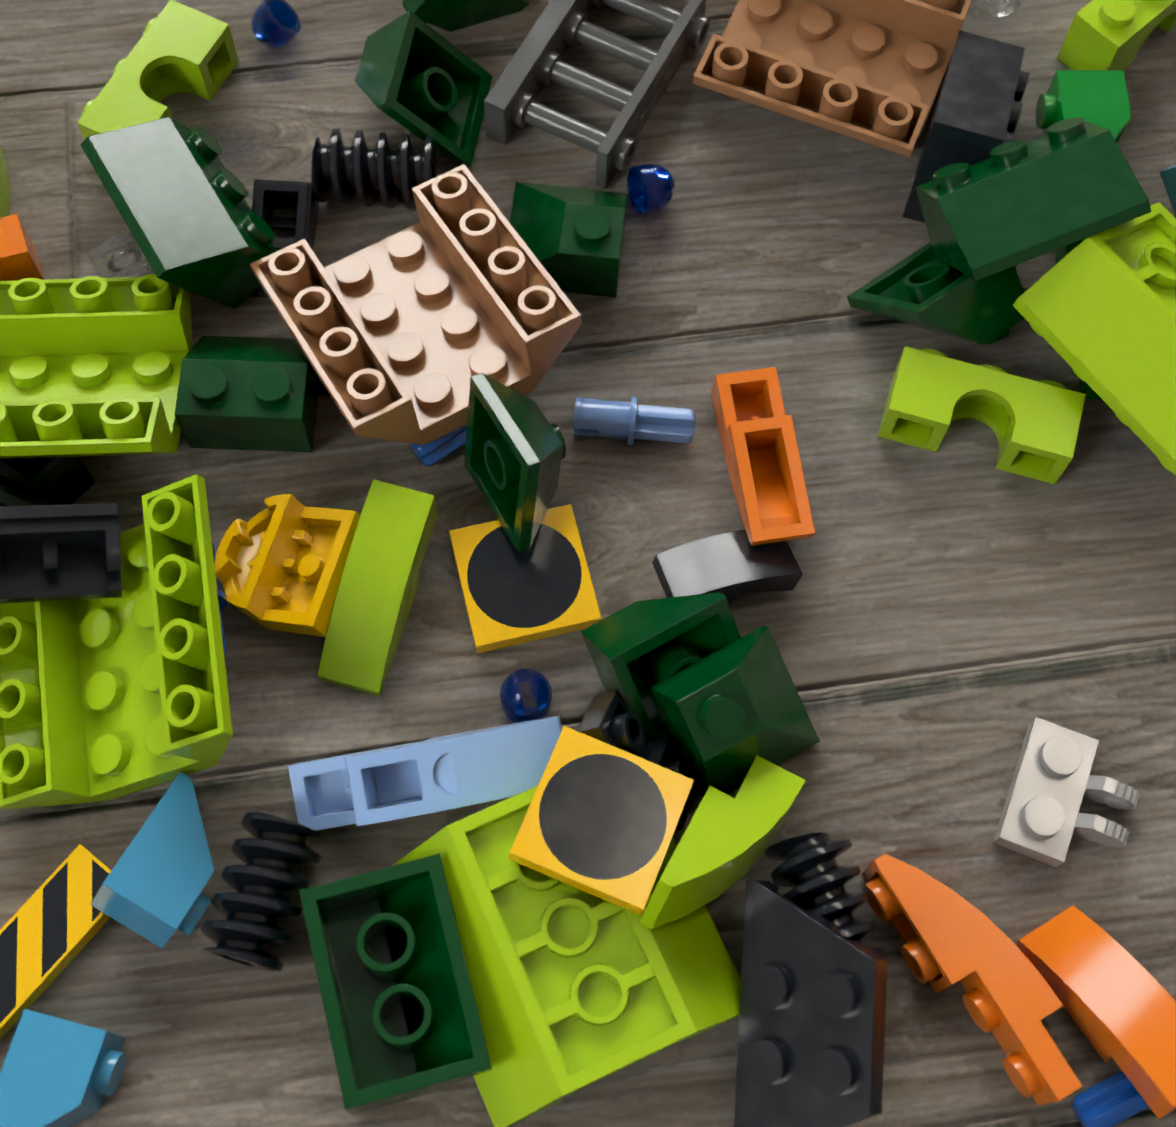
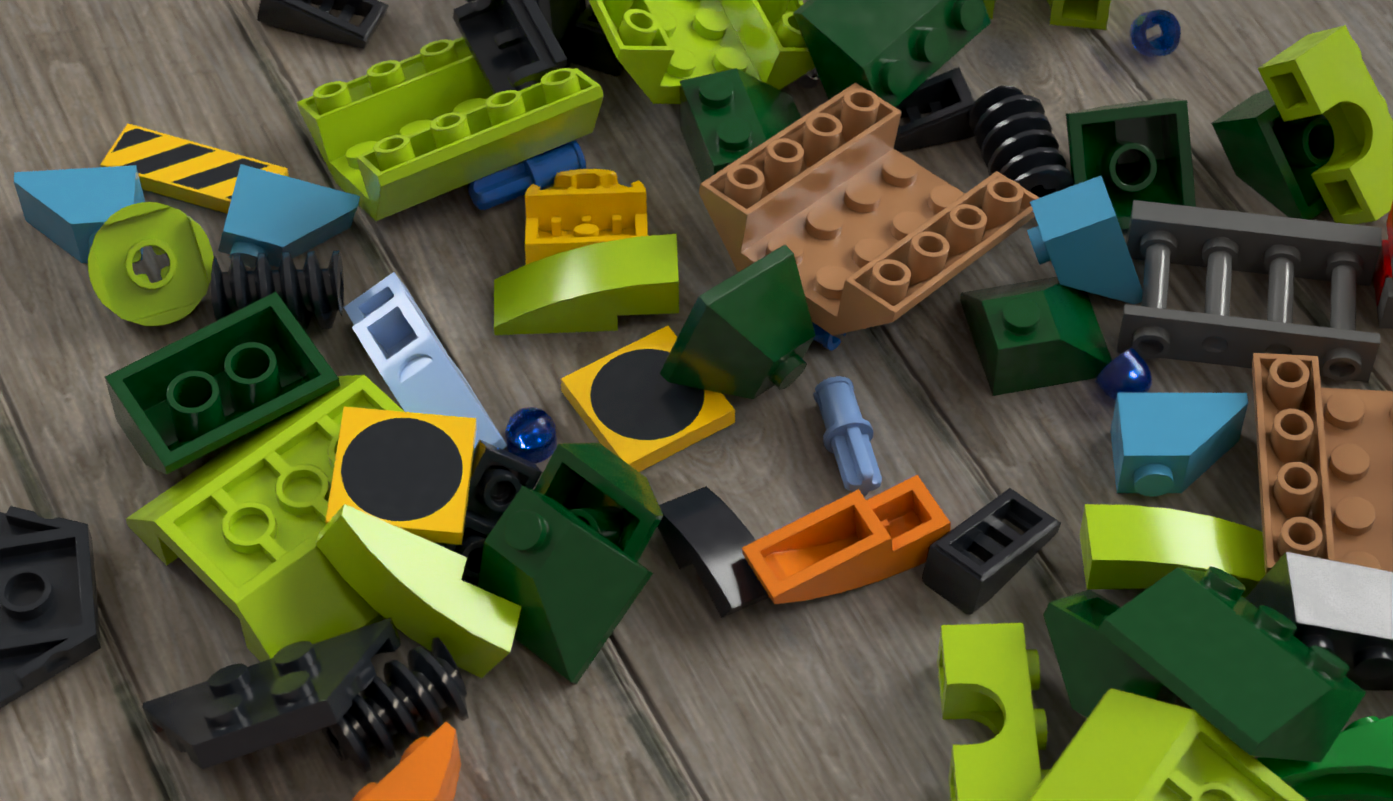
camera: 75 degrees right, 15 degrees down
(130, 1026) = (169, 233): none -> lime plate
(518, 148) = (1085, 242): none -> dark azure slope
(732, 180) = (1172, 438): none -> dark azure slope
(805, 384) = (965, 578): none -> black slope
(848, 222) = (1143, 544): none -> lime slope

